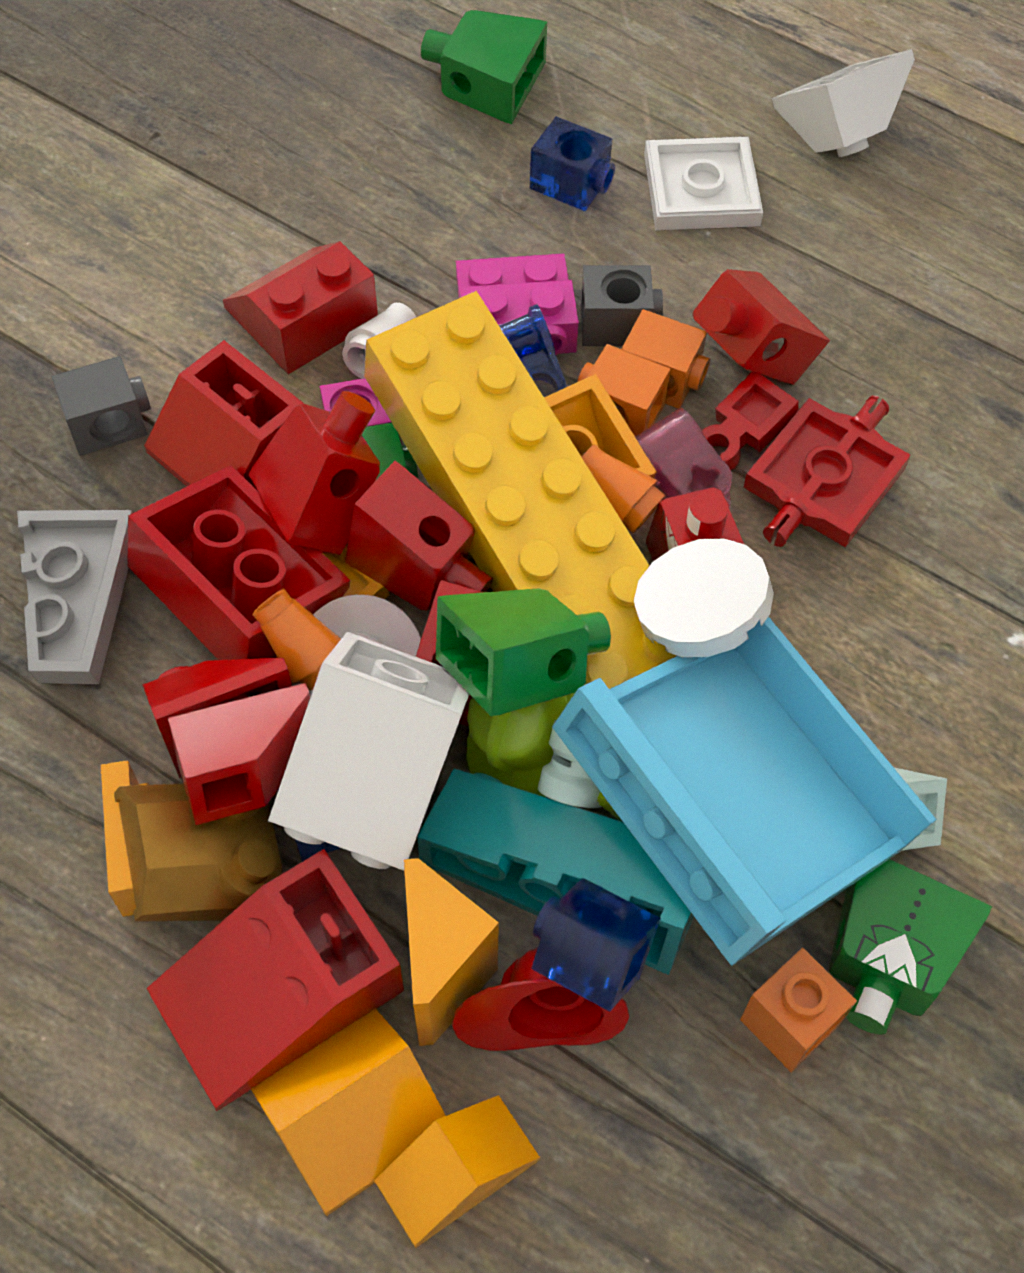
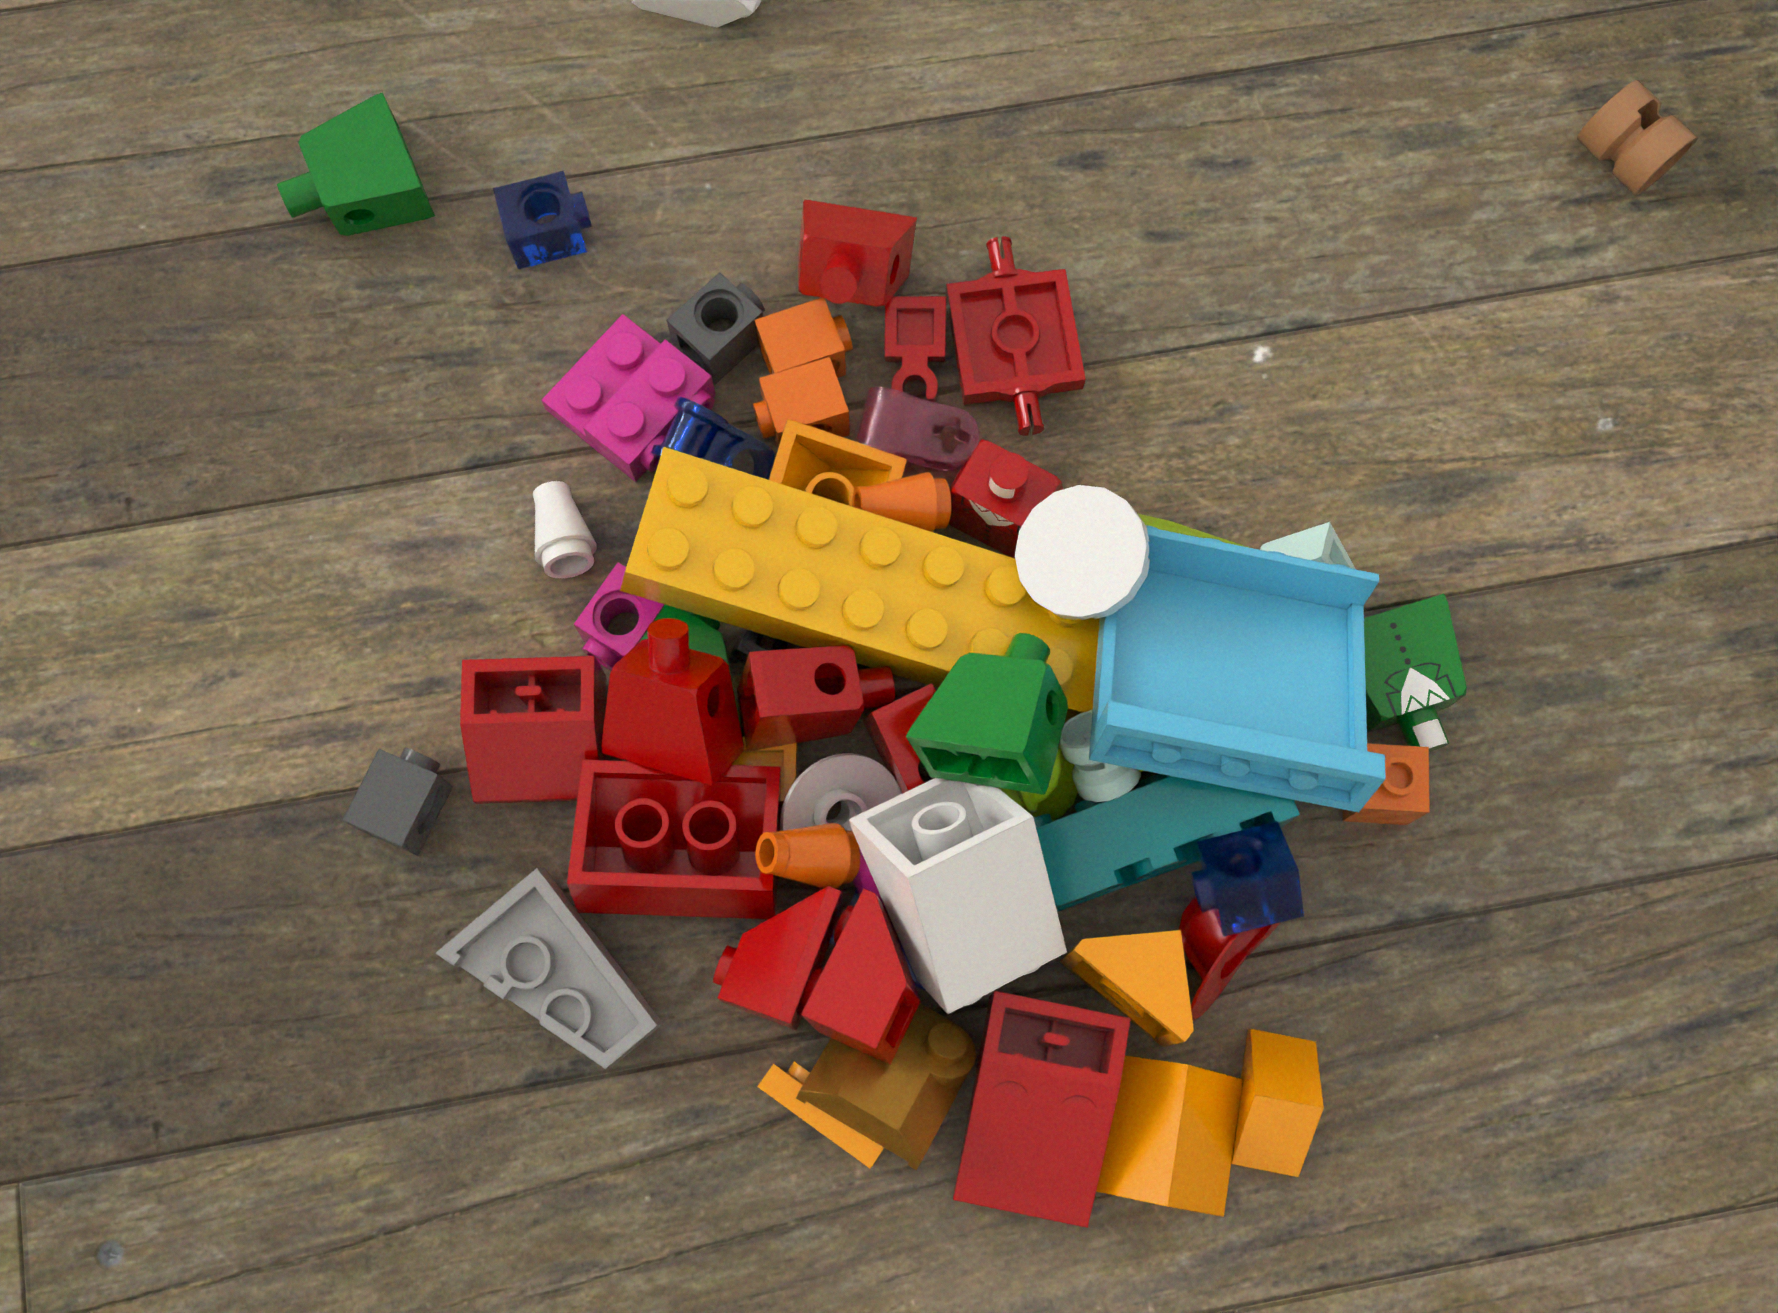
camera: 45 degrees left, 15 degrees up
(306, 304) = (455, 552): red slope -> none
(702, 183) = (659, 141): white tile -> none

